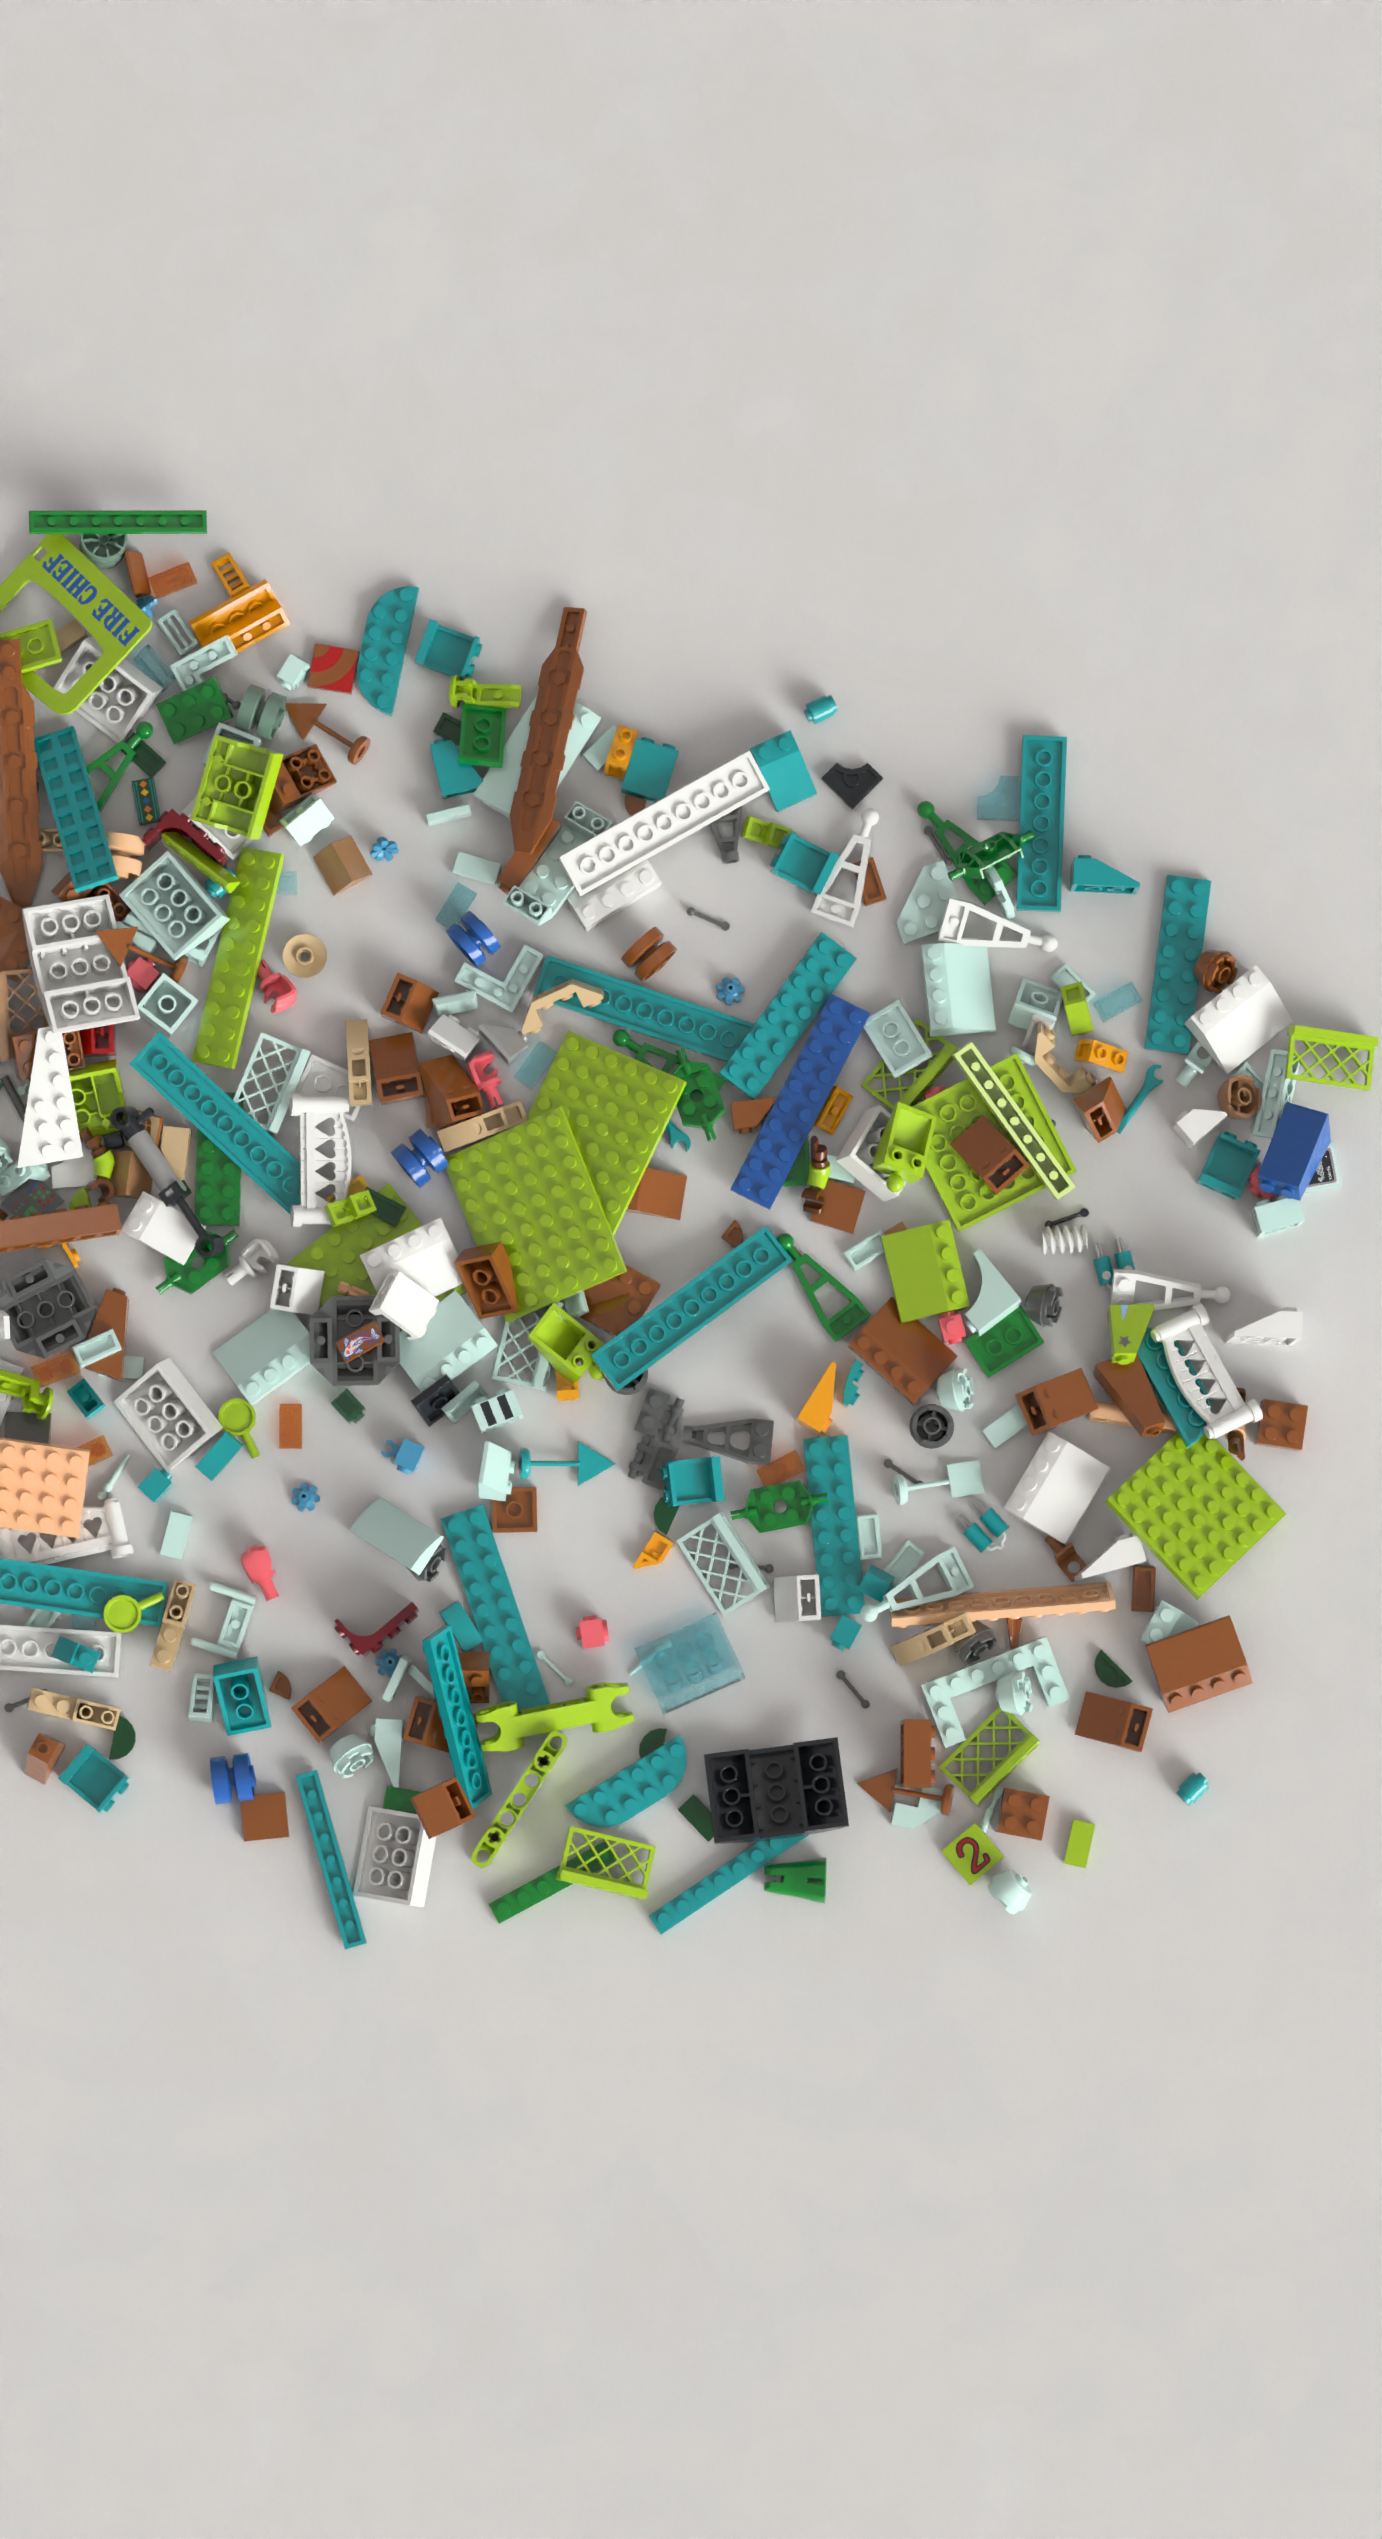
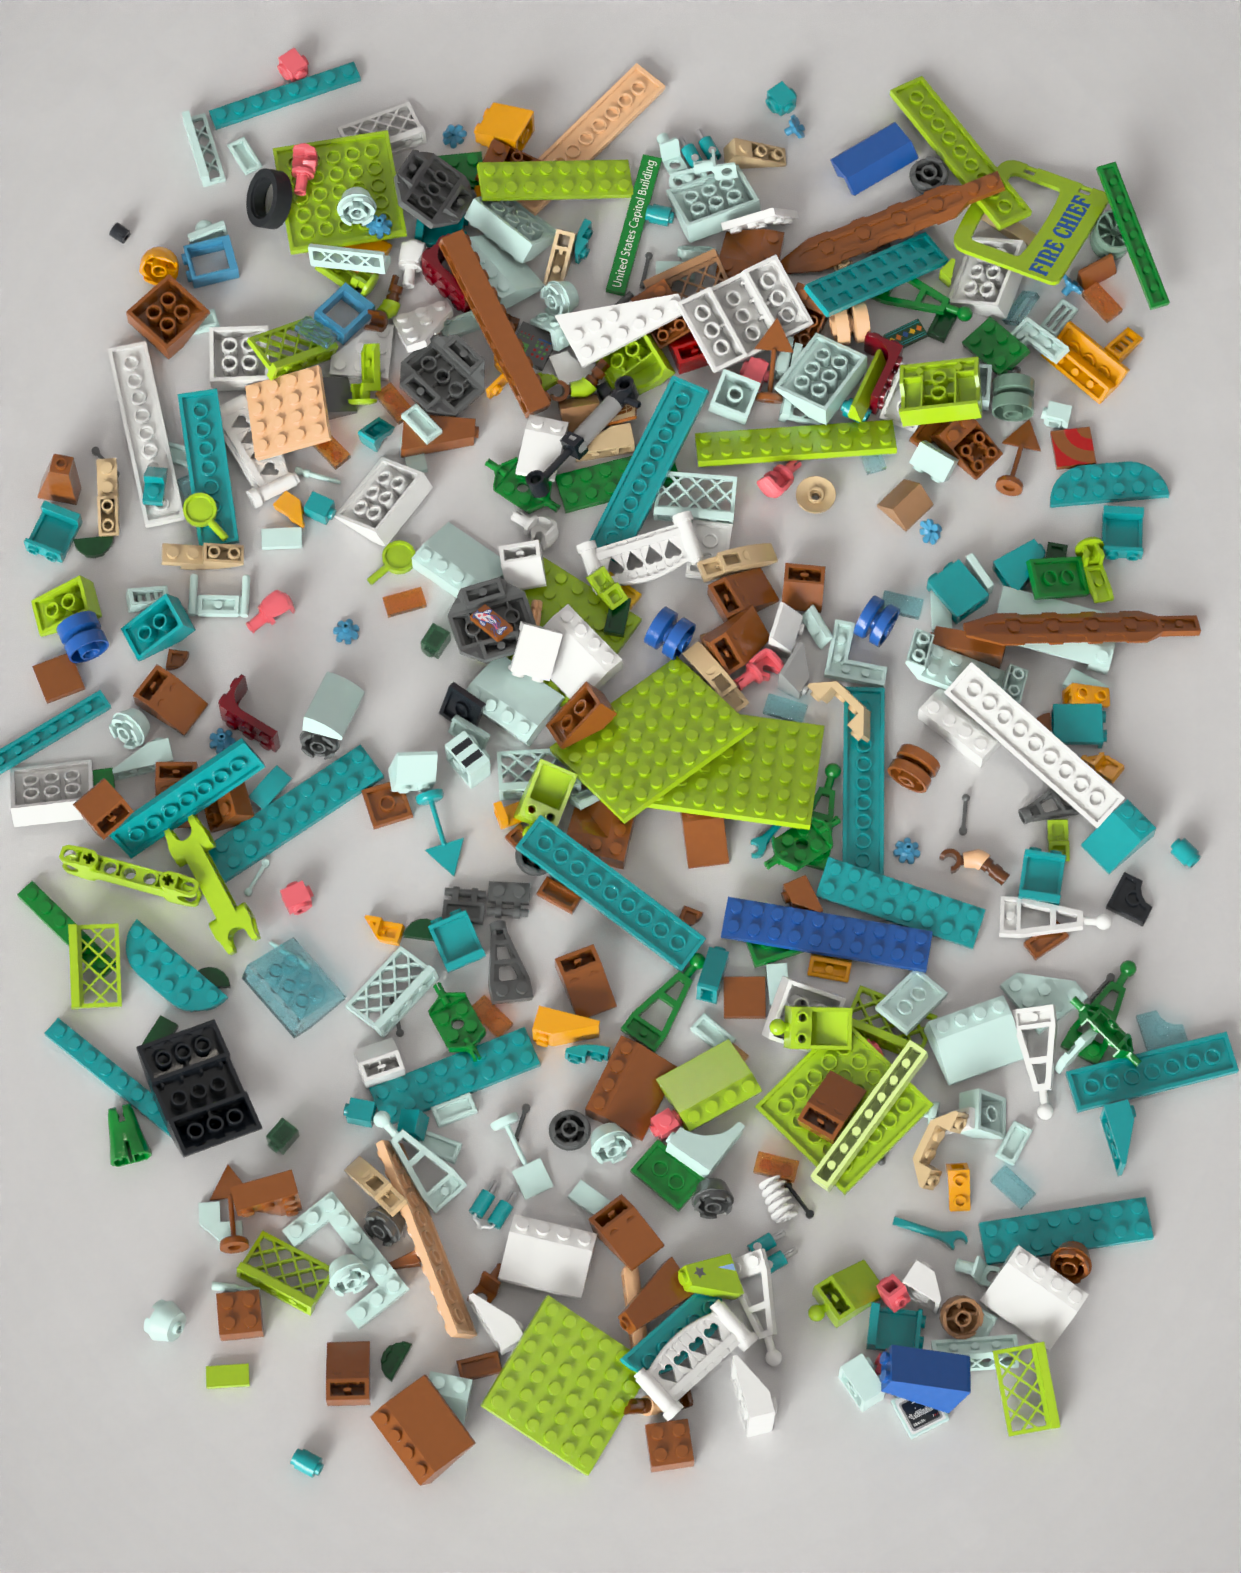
camera: 80 degrees right, 15 degrees down
(89, 732) = (946, 273): none -> lime slope
(145, 1515) = (291, 507): none -> light orange slope
(187, 1787) = (64, 601): none -> lime slope
(219, 1455) = (360, 550): teal slope -> none
(396, 1678) = (206, 746): light aqua tile -> none
(407, 1455) = (407, 700): dark azure brick -> none
(460, 843) = (958, 590): none -> teal panel
(593, 1387) = (515, 835): none -> dark orange tile
(670, 1363) = (559, 895): none -> dark orange tile
(700, 758) = (1104, 766): none -> light orange slope
(765, 920) = (976, 859): none -> reddish brown piece
(777, 1363) = (585, 982): none -> dark orange slope
(806, 1230) = (712, 974): none -> teal slope
(817, 1178) = (762, 968): reddish brown piece -> none
(841, 1675) = (321, 1122): dark grey hinge -> none
(847, 1720) = (282, 1136): none -> clear green brick
(973, 1853) = (191, 1282): lime tile -> none
(1027, 1230) = (774, 1165): none -> clear orange plate
(1077, 1008) = (991, 1149): lime slope -> none
(1101, 1109) = (908, 1196): dark orange slope -> none
(1177, 1199) = (849, 1292): none -> lime slope
(1196, 1156) = (893, 1293): none -> coral brick

